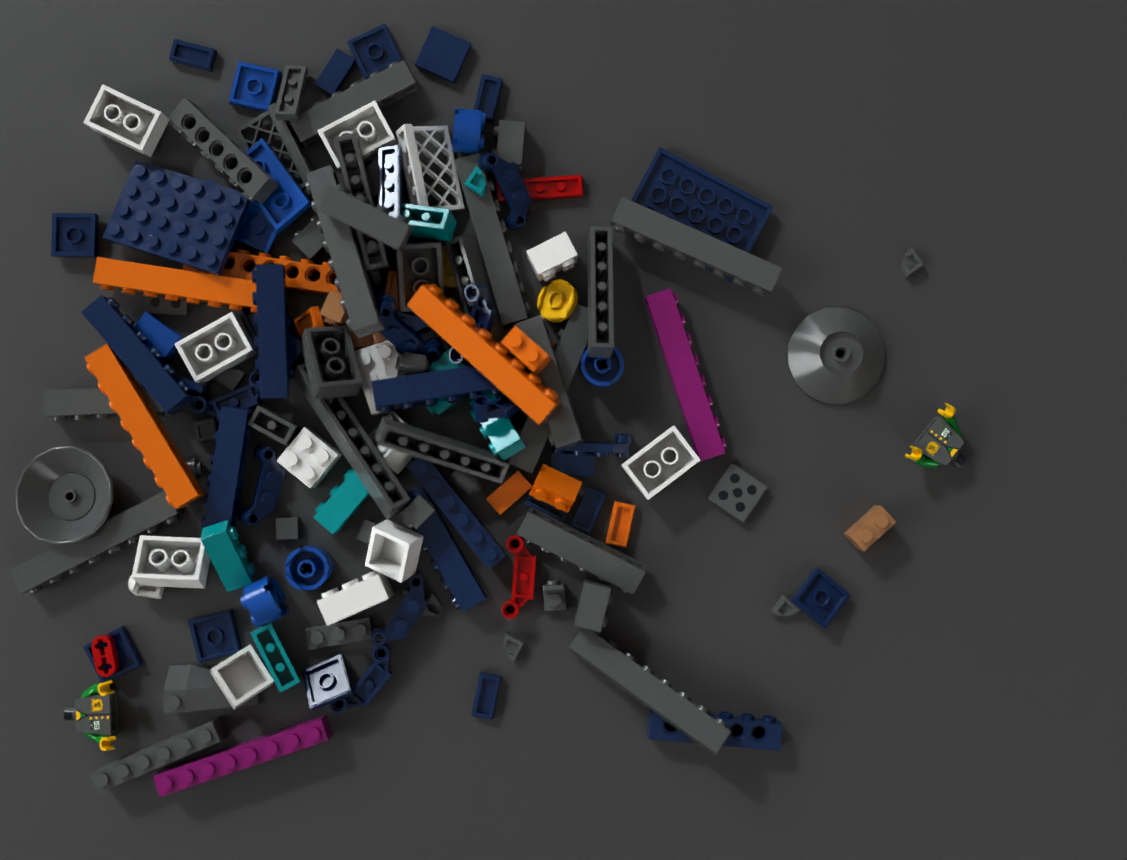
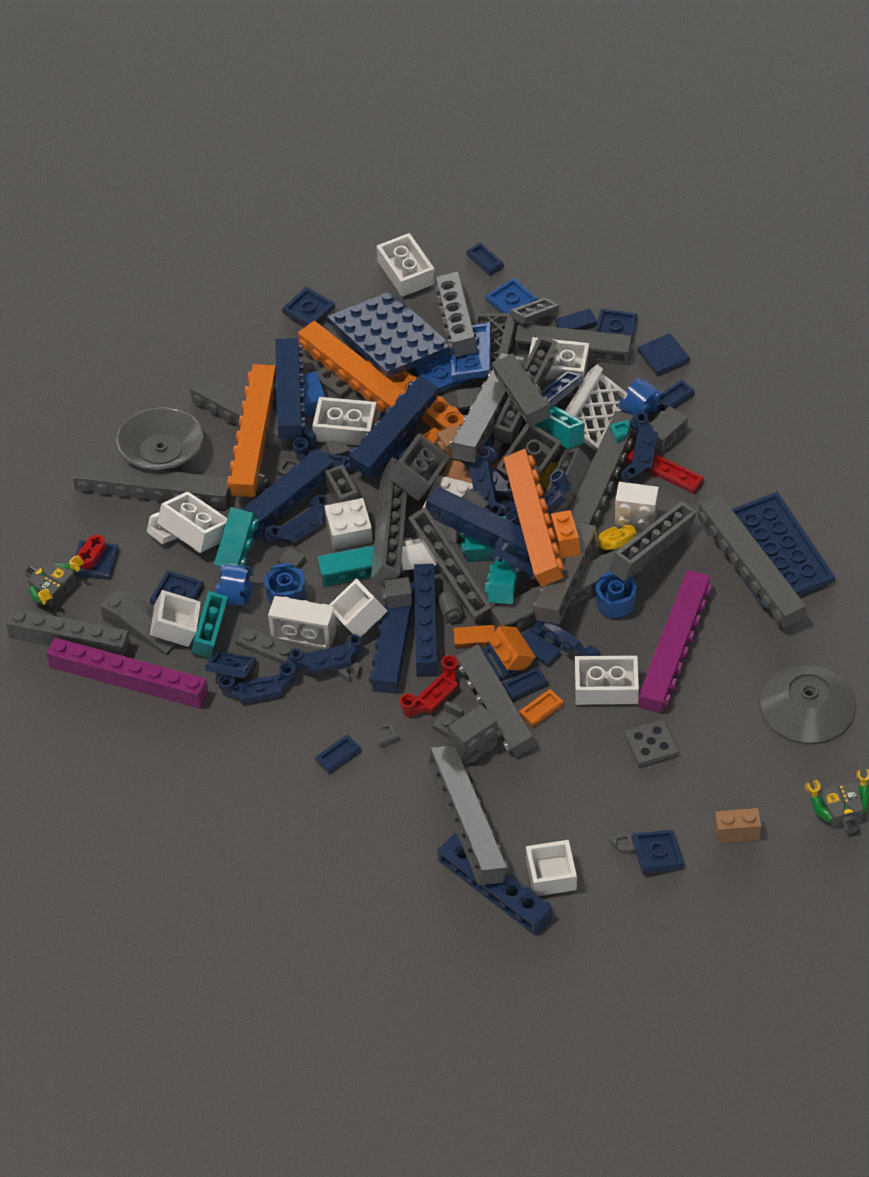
camera: 40 degrees right, 35 degrees down
(751, 685) = (551, 868): none -> white piece

